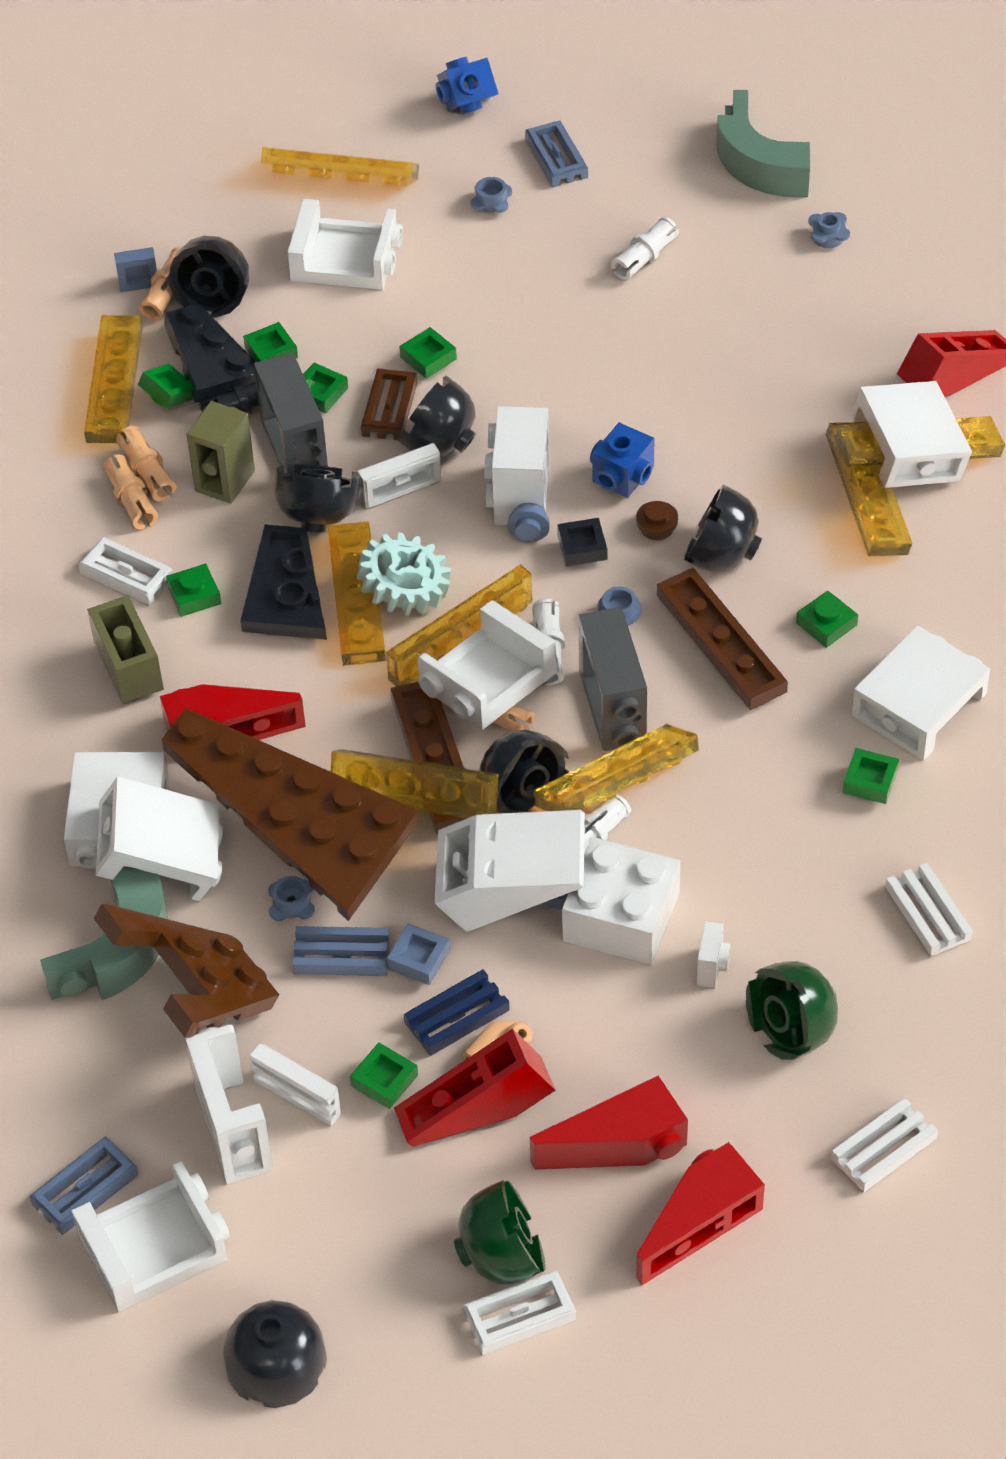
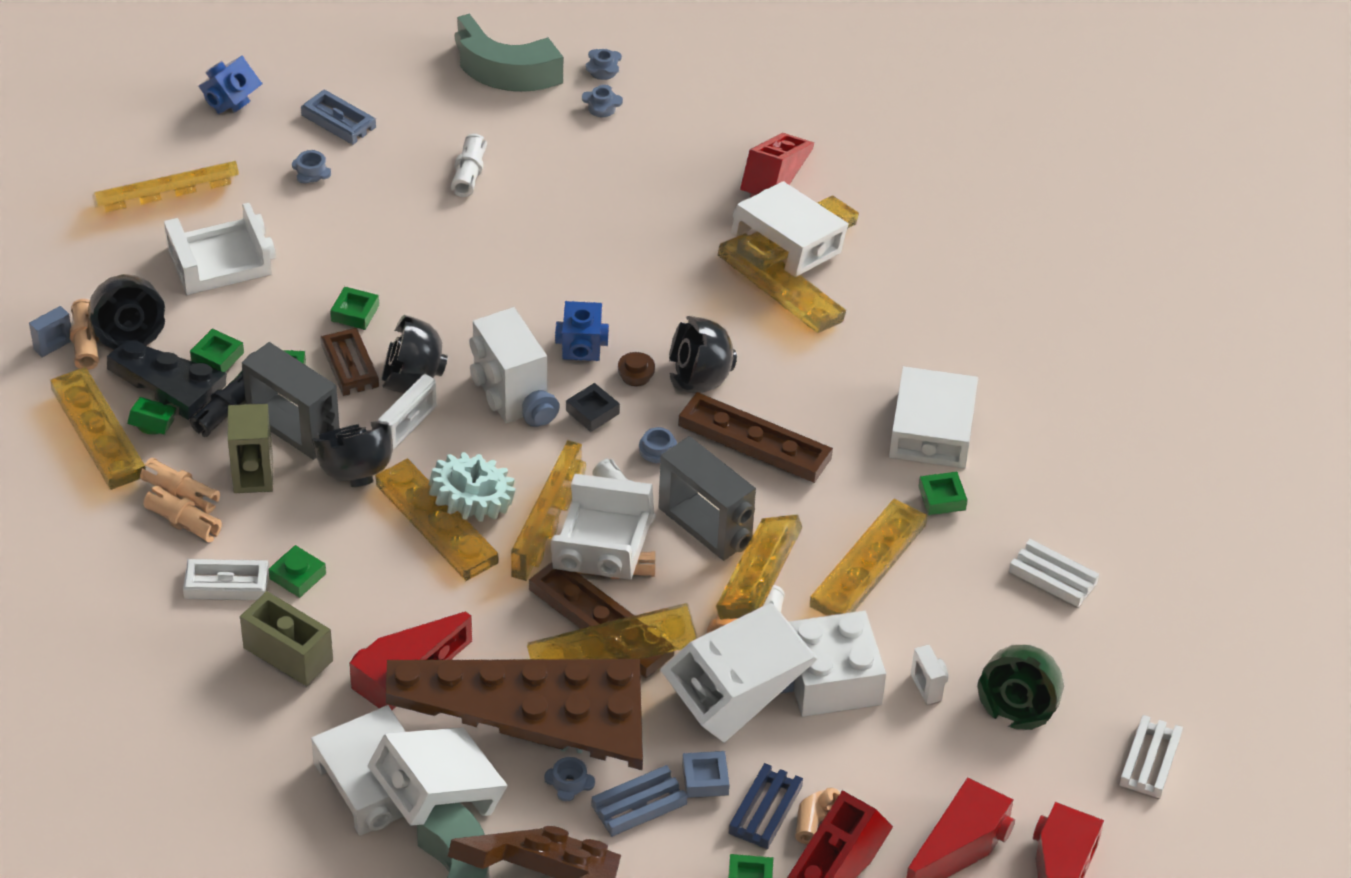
camera: 35 degrees left, 5 degrees down
(283, 587) = (375, 538): black wing -> none
(523, 764) = (691, 583): black cylinder -> none
(741, 812) = (869, 560): none -> clear yellow plate
(827, 618) = (820, 392): green plate -> none
(859, 190) = (603, 63): none -> sand blue plate

